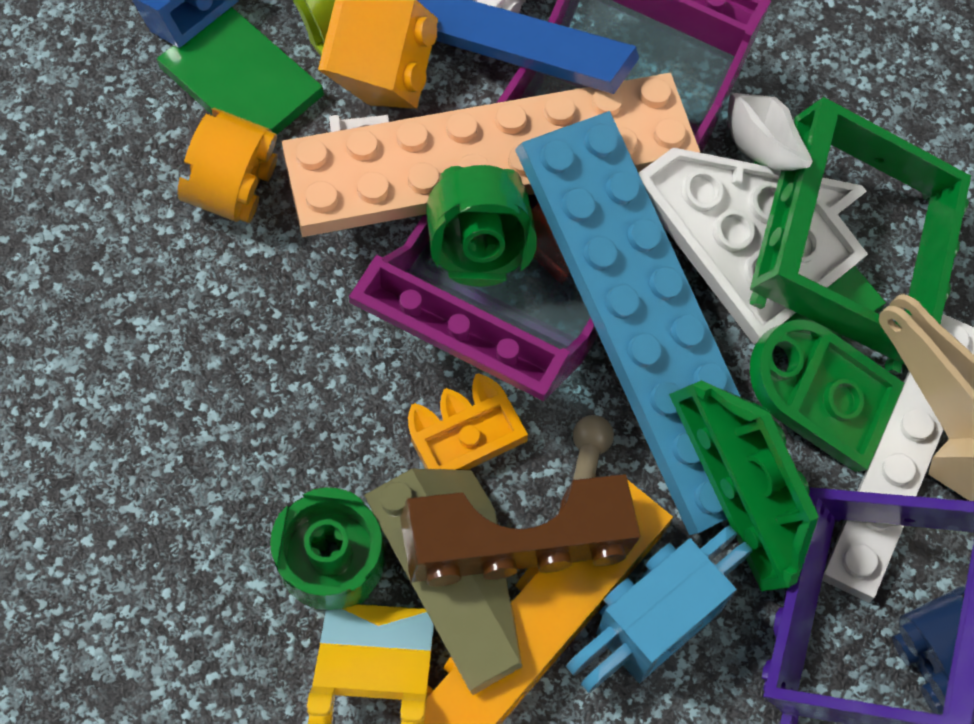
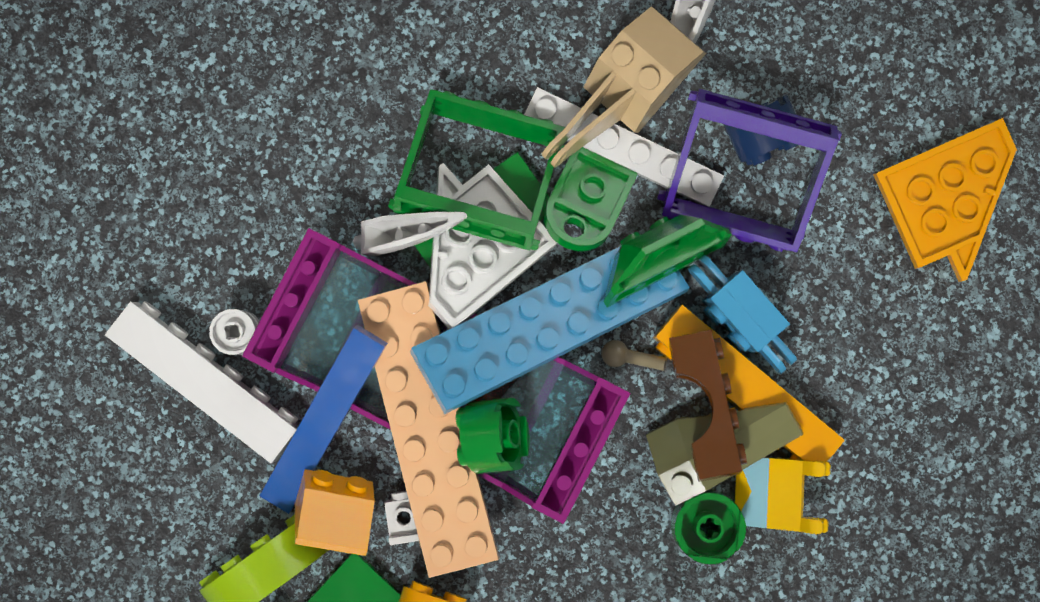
camera: 90 degrees left, 20 degrees up
(467, 432) = (627, 446): light orange plate -> none

